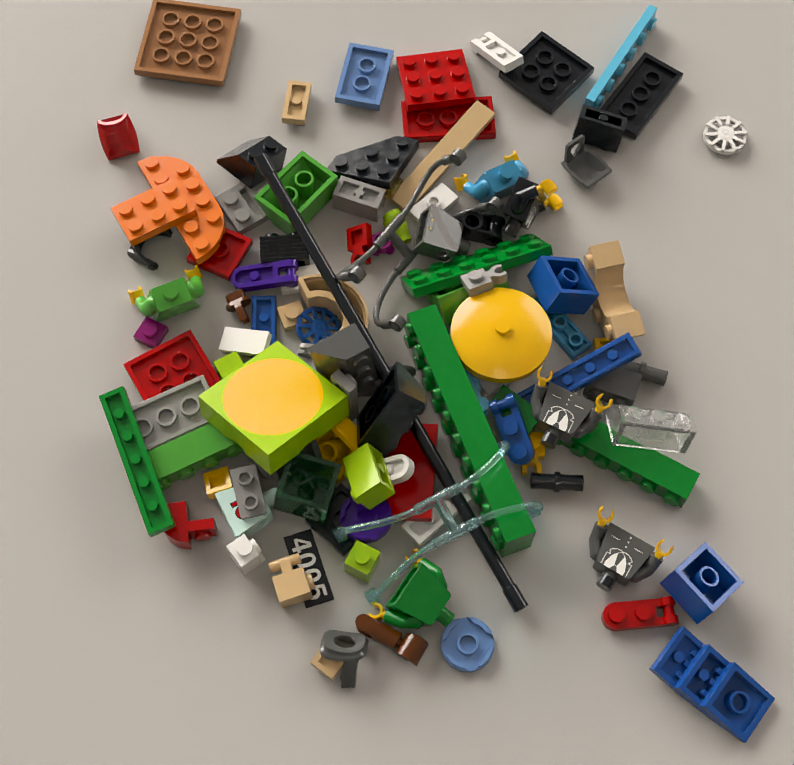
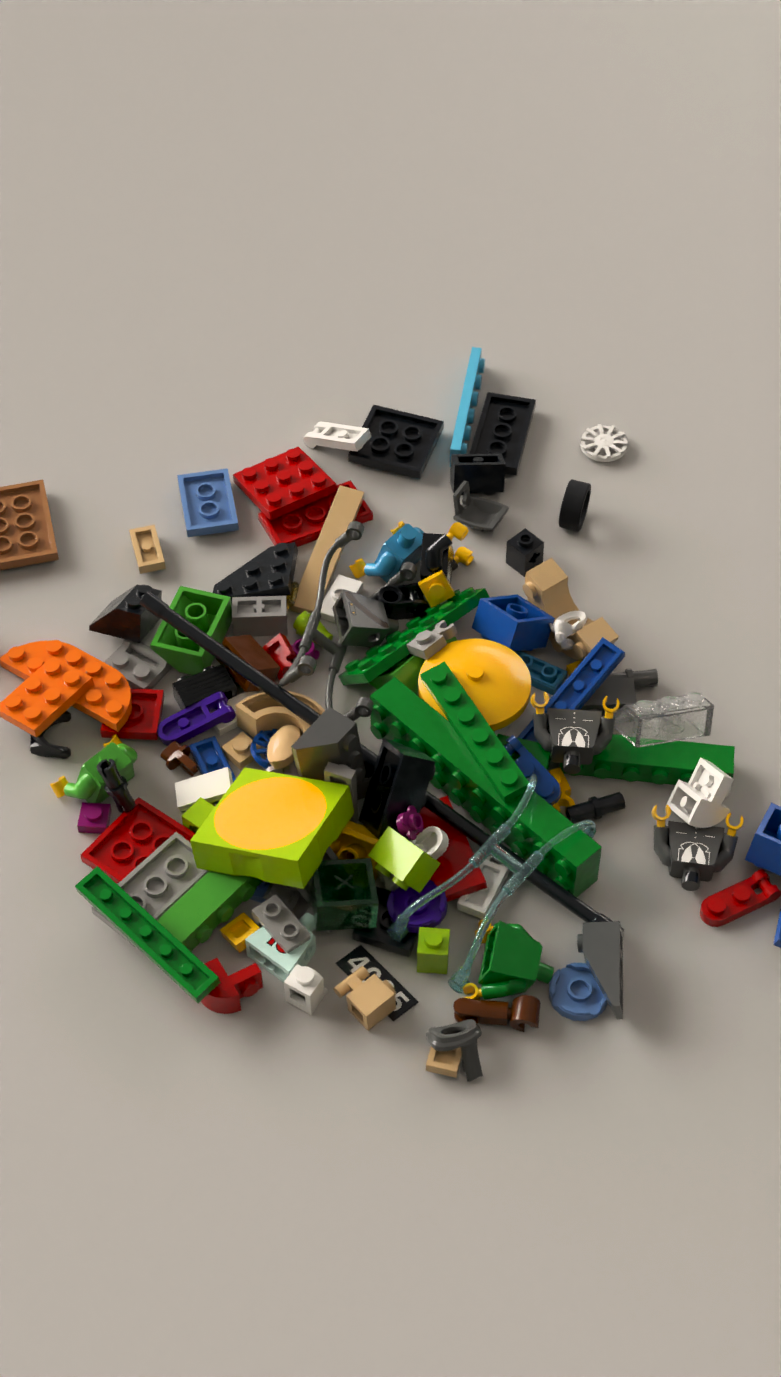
camera: 20 degrees left, 15 degrees down
(170, 317) = (116, 785): none -> black pin
(321, 328) = (279, 747): none -> tan arm
(331, 237) = (250, 651): none -> reddish brown brick
(386, 446) = (410, 823): none -> magenta plate
(477, 383) = (475, 732): none -> green plate
(497, 626) = (604, 957): none -> dark grey slope
(512, 229) = (436, 588): none -> yellow plate
(600, 310) = (563, 629): none -> white piece
(604, 215) = (524, 552): none -> black brick
(648, 511) = (703, 796): none -> white brick
(669, 189) = (574, 505): none -> black tyre

